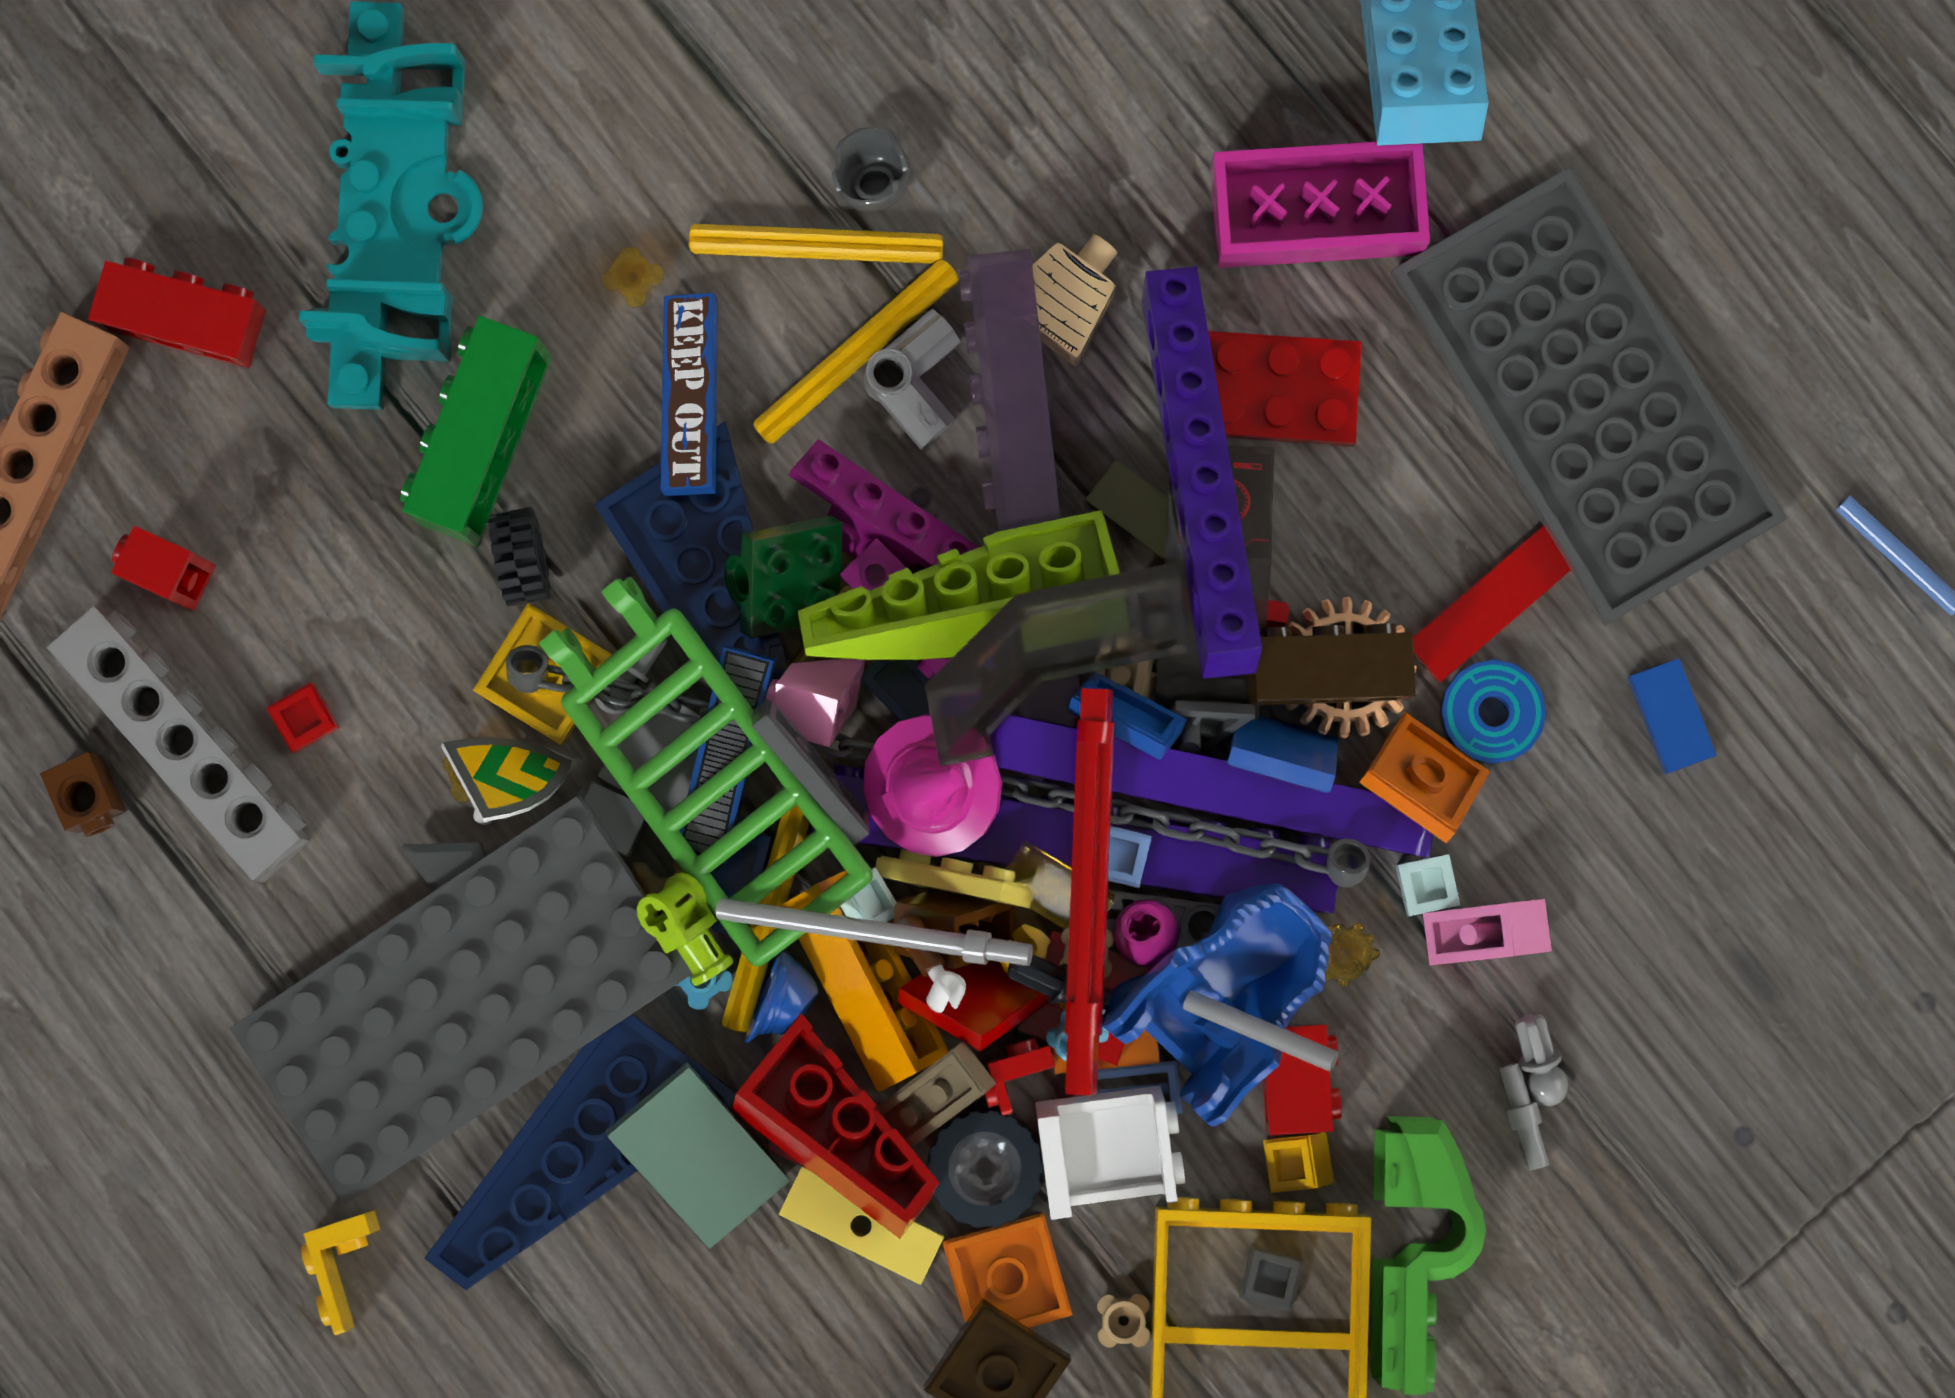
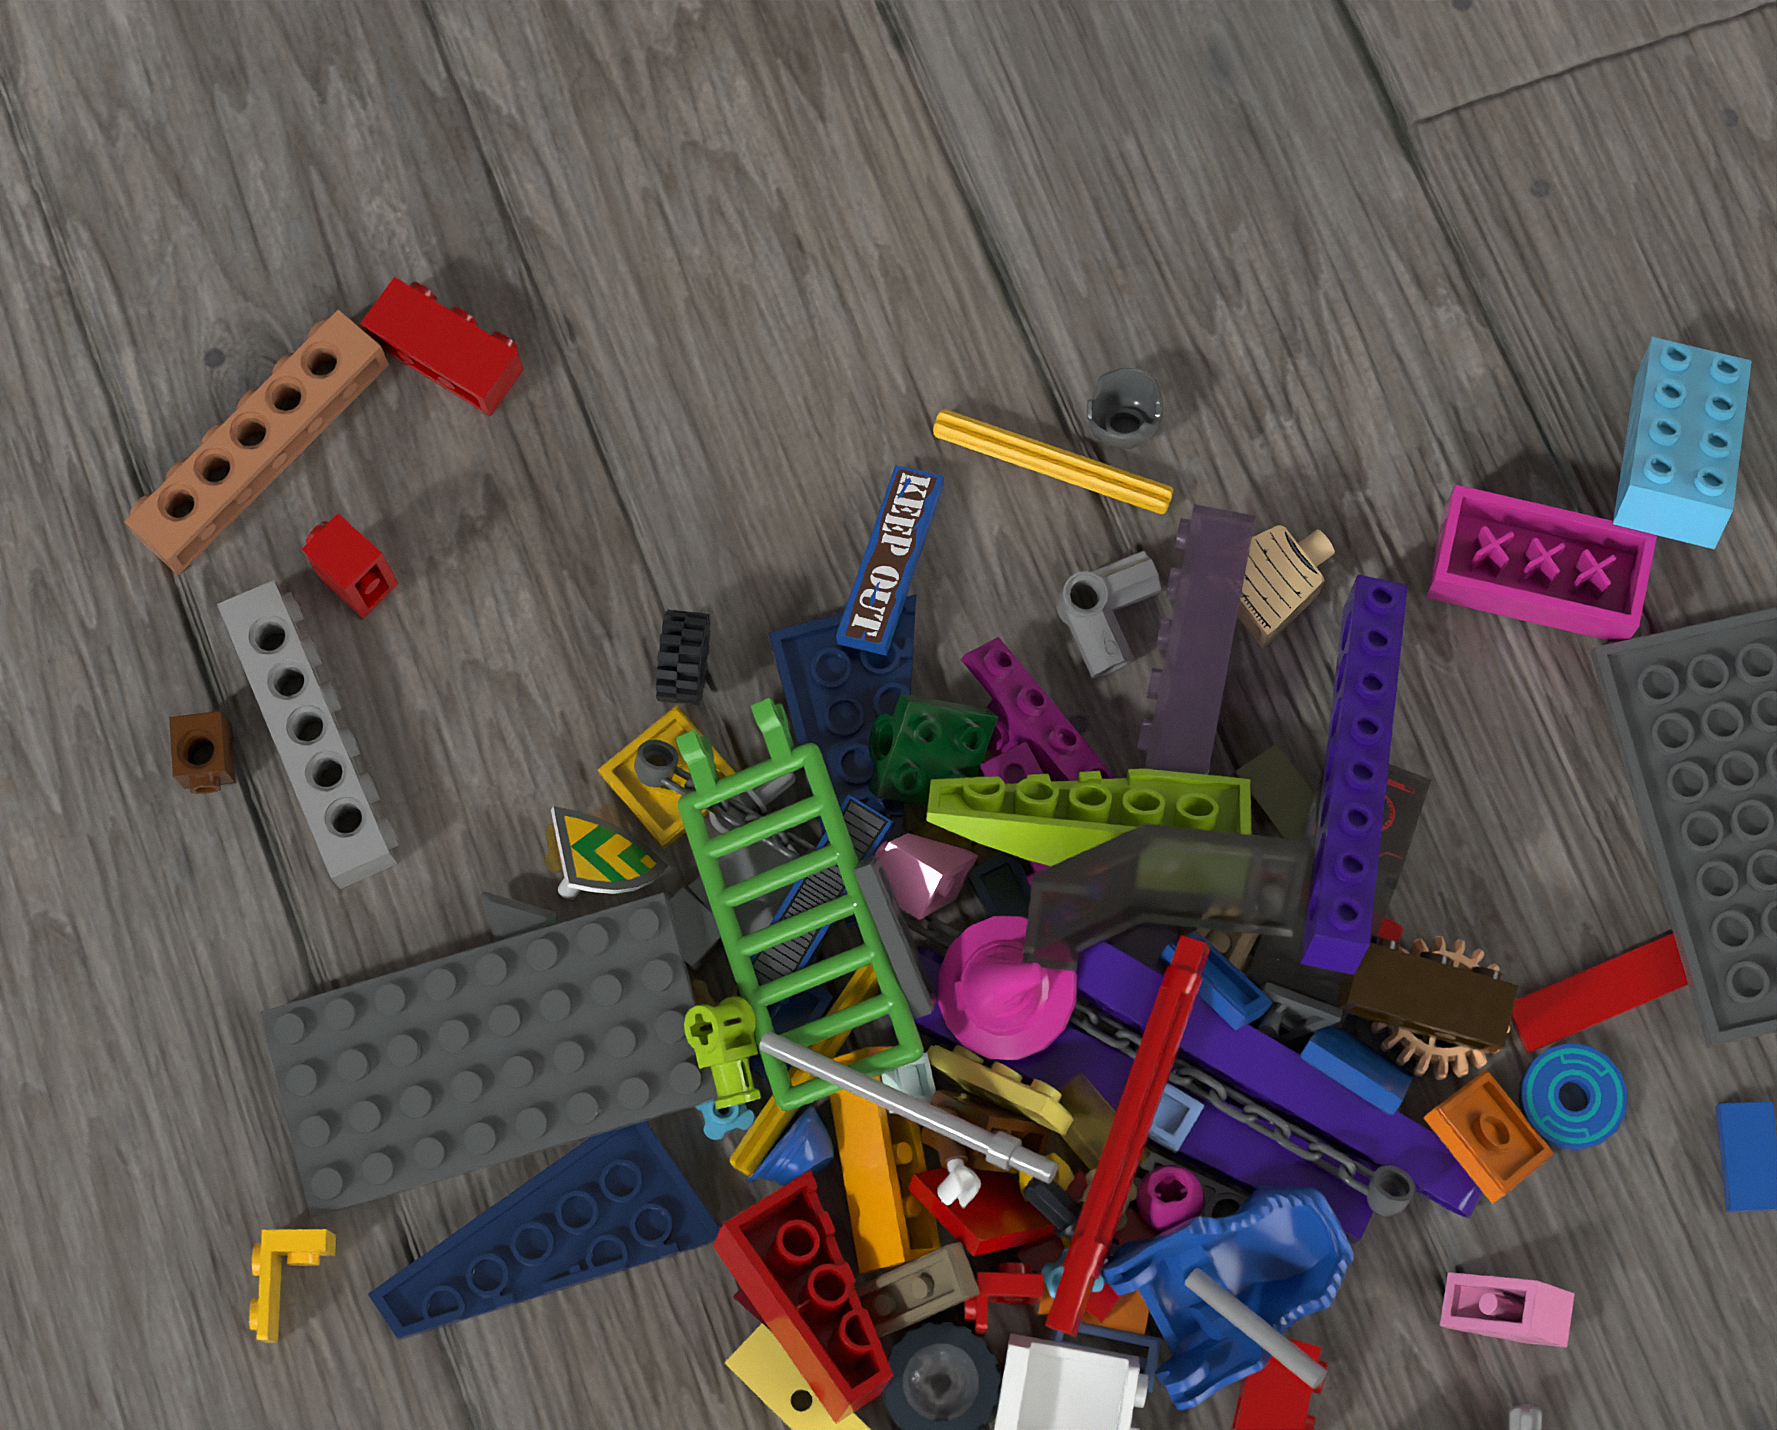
camera: 15 degrees right, 10 degrees down
(303, 717) = (429, 747): red tile -> none
(384, 202) = (664, 307): teal piece -> none
(476, 430) = (681, 530): green brick -> none
(632, 262) = (871, 426): clear yellow plate -> none
(697, 1155) = (665, 1279): sand green tile -> none
(856, 351) = (1057, 569): yellow axle -> none
(1288, 387) = (1461, 728): red plate -> none
(1362, 953) = (1377, 1284): clear yellow animal -> none
(1427, 885) = (1460, 1245): light aqua tile -> none

